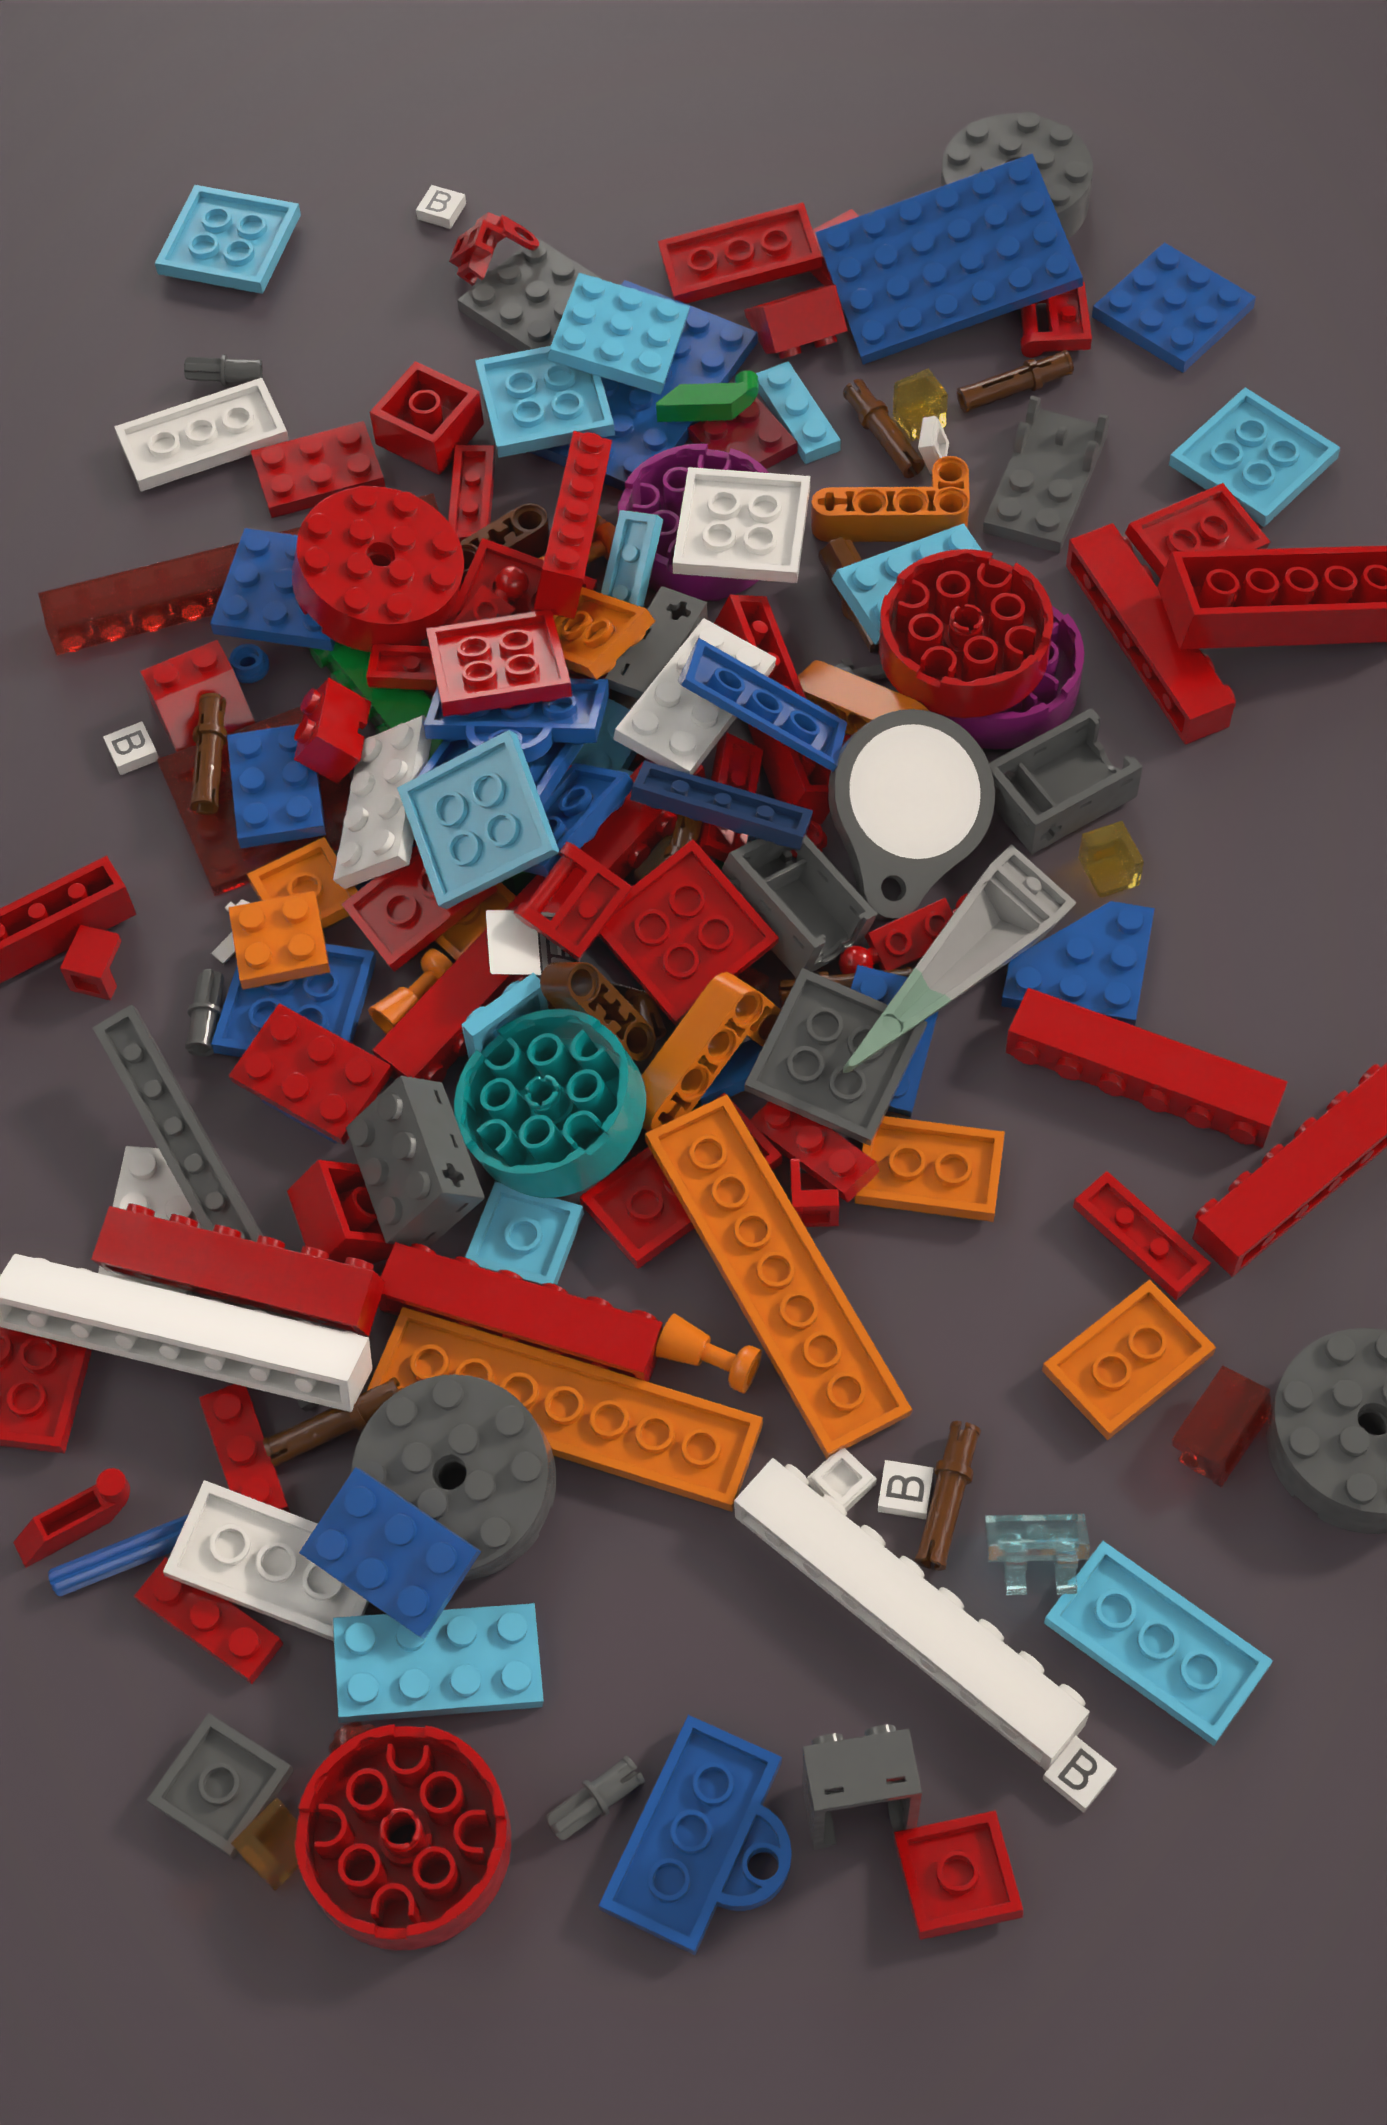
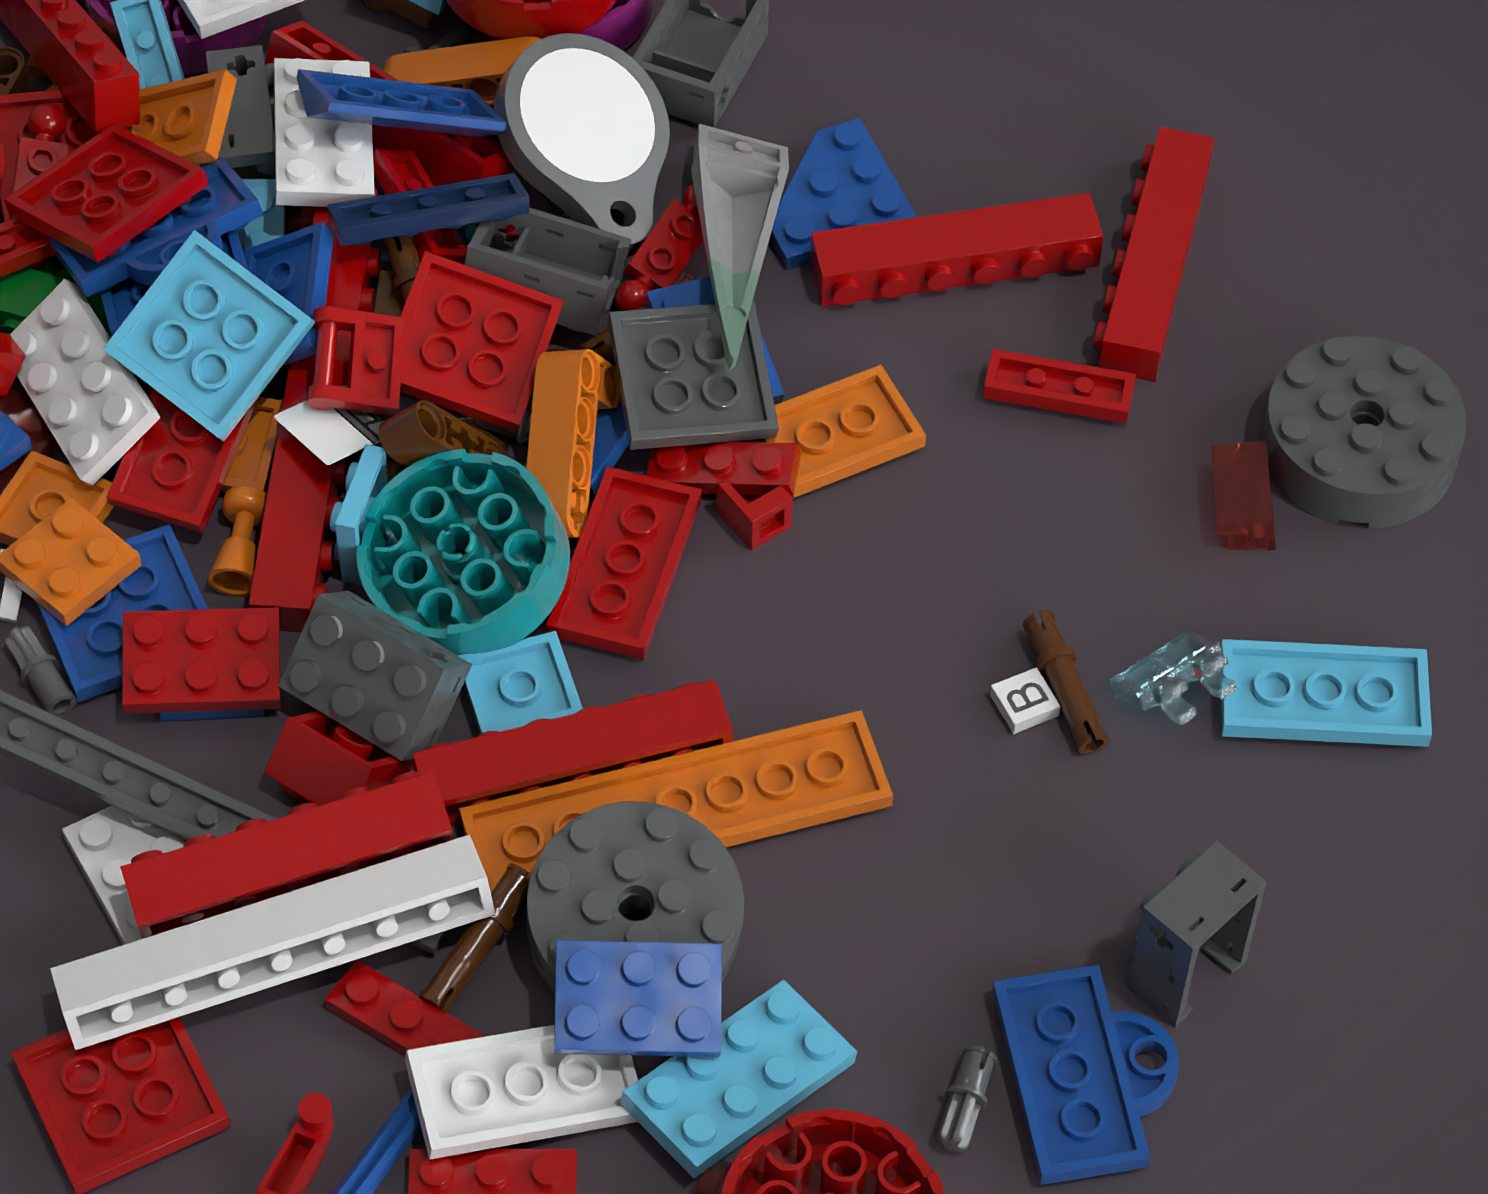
camera: 40 degrees left, 5 degrees down
(690, 1345) = (750, 690): orange piece -> none
(778, 1276) = (779, 586): orange plate -> none
(842, 1479) = (964, 726): white tile -> none
(911, 1613) = (1109, 790): white brick -> none
(958, 1875) = (1310, 966): red plate -> none
(1079, 1774) = (1342, 832): white tile -> none
(1111, 859) = (790, 95): clear yellow panel -> none
(1128, 1359) = (1127, 489): orange plate -> none

